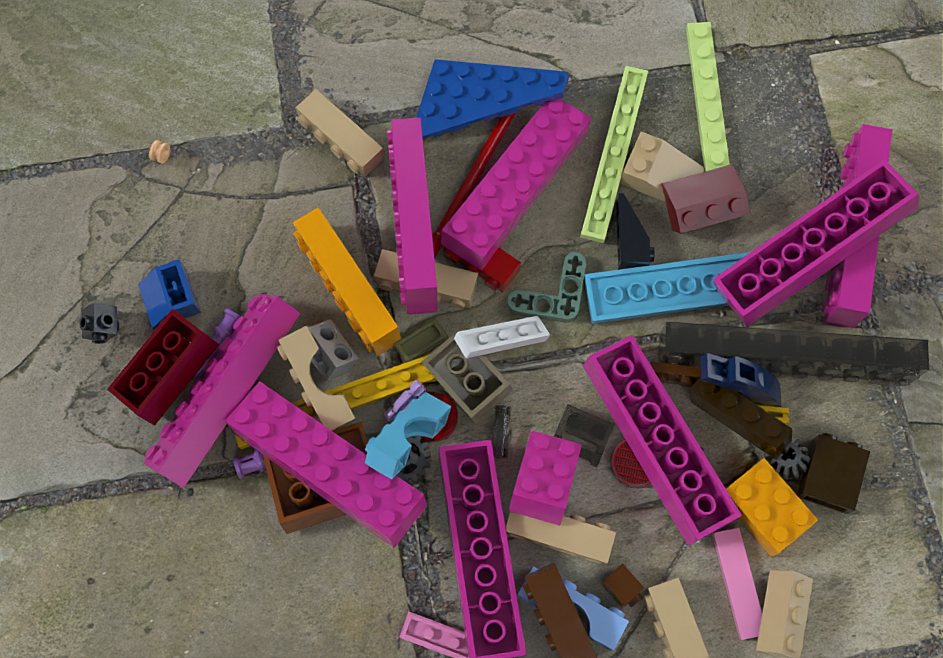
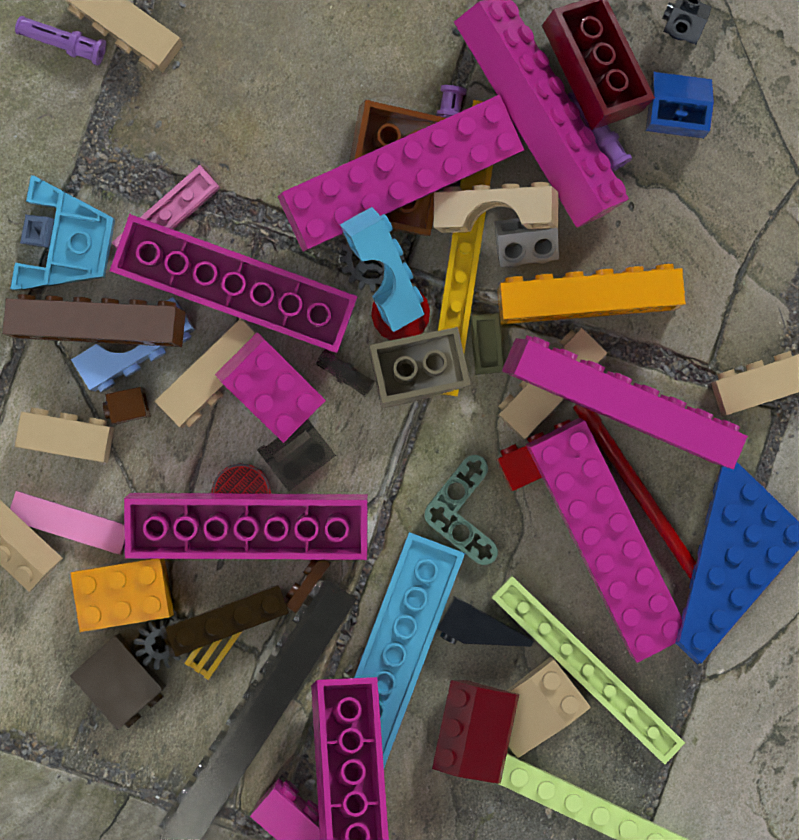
camera: 120 degrees right, 15 degrees up
(404, 400) = (429, 291): lavender axle -> none
(501, 336) = (439, 424): white plate -> none
(742, 376) = (257, 642): dark blue slope -> none

